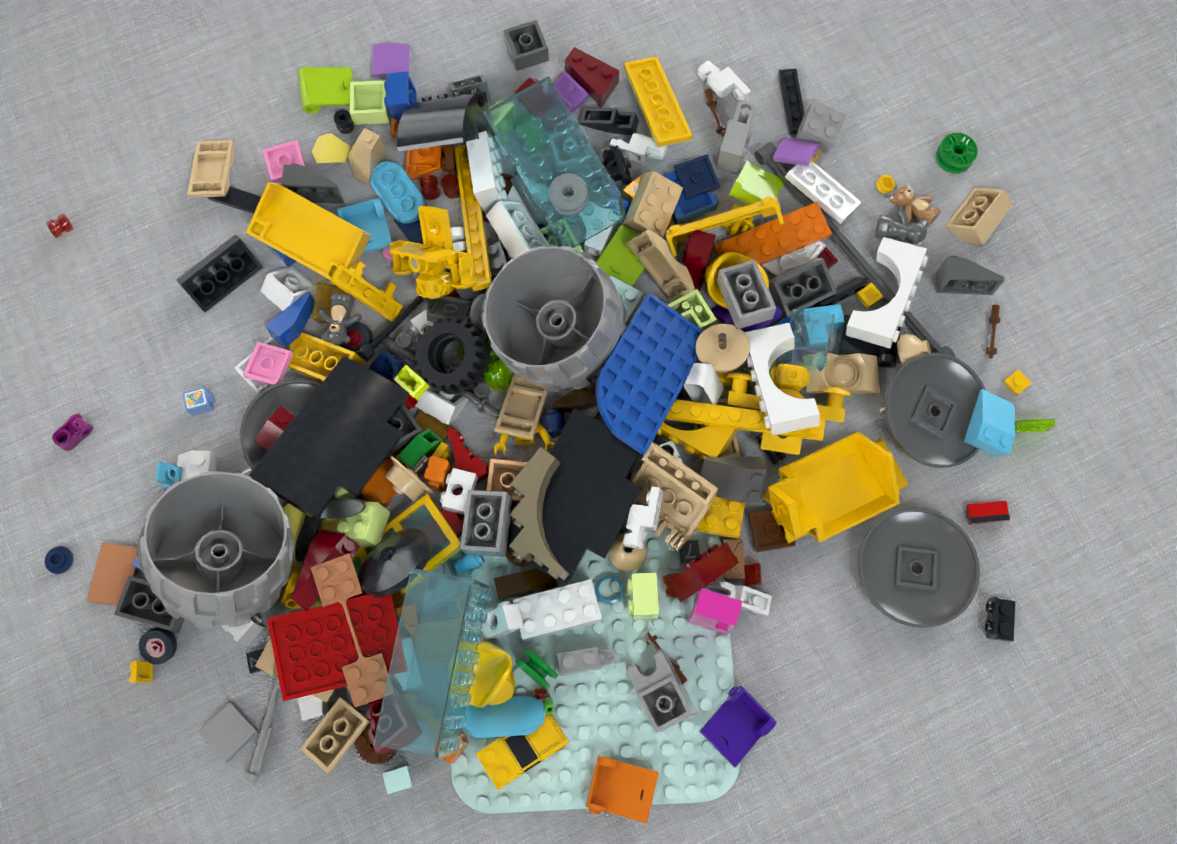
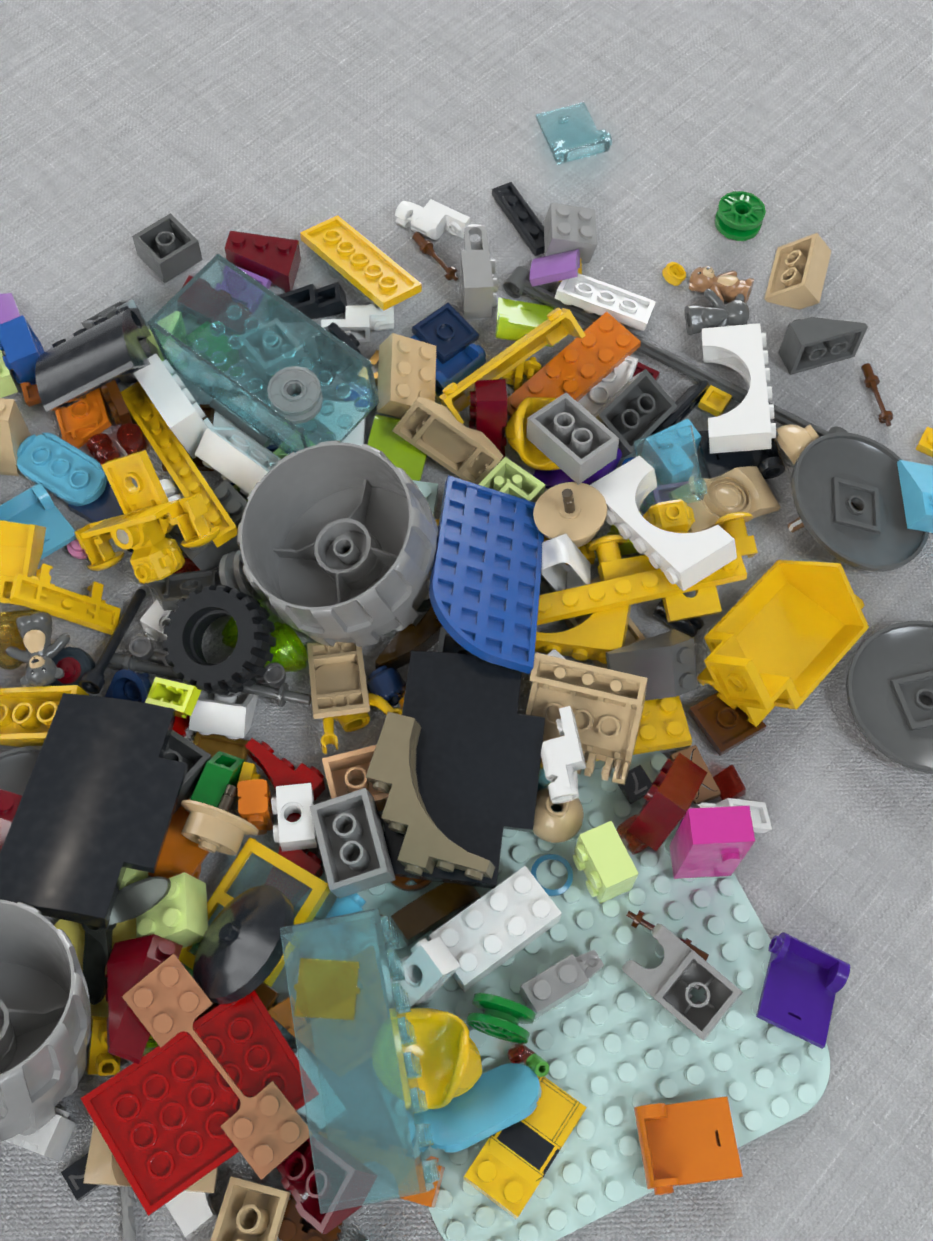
camera: 25 degrees left, 10 degrees down
(425, 616) = (327, 989): none -> clear yellow piece
(859, 42) = (572, 133): none -> clear light blue door

